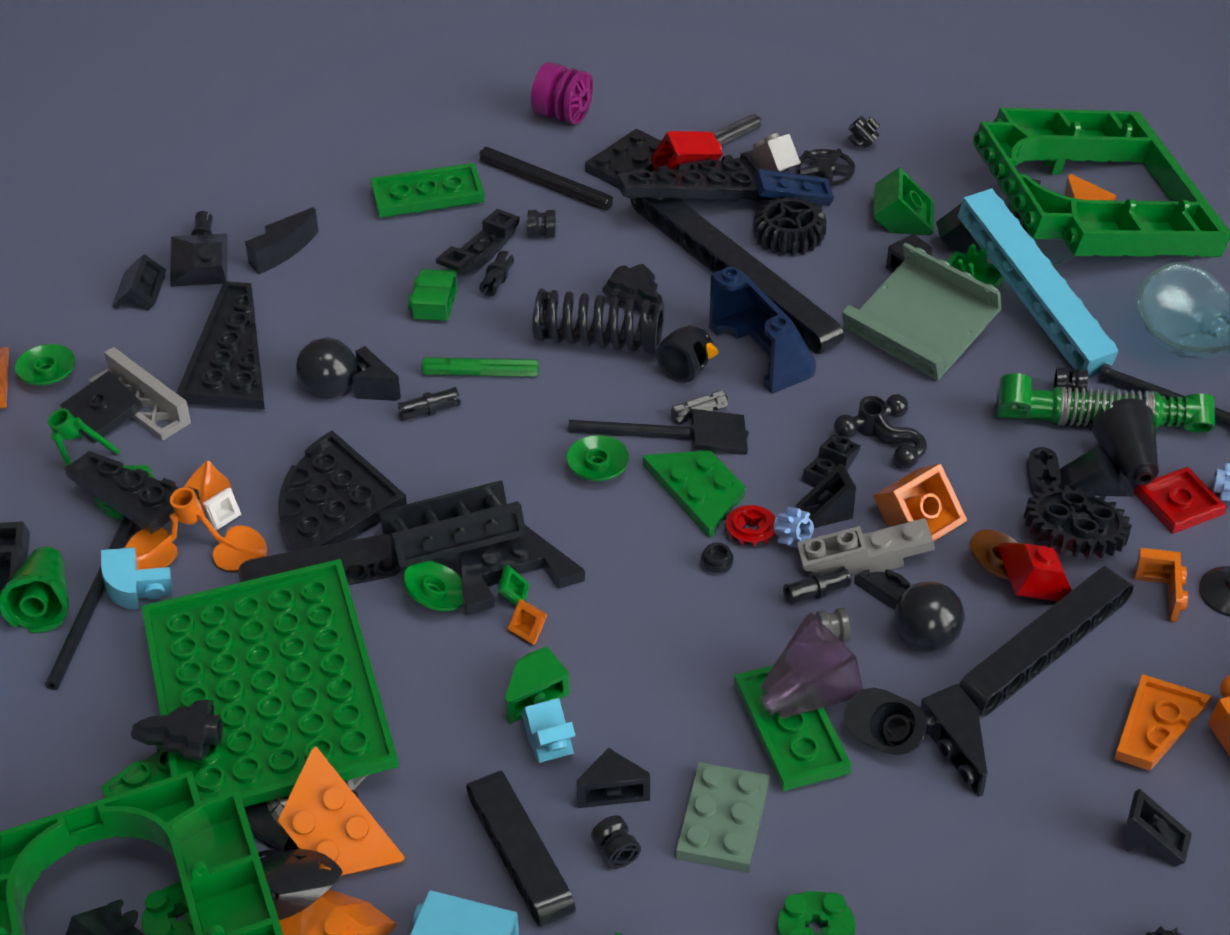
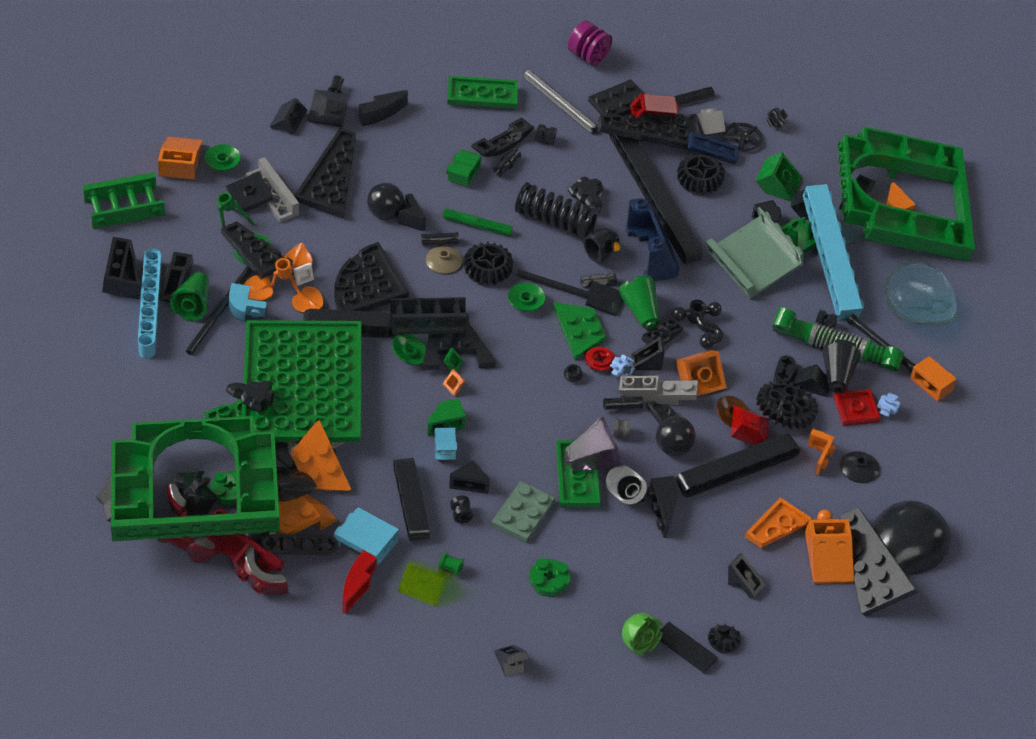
camera: 10 degrees right, 5 degrees up
(445, 435) = (443, 260): none -> dark tan dish
(518, 422) = (488, 263): none -> black gear
(782, 419) = (642, 300): none -> green cone

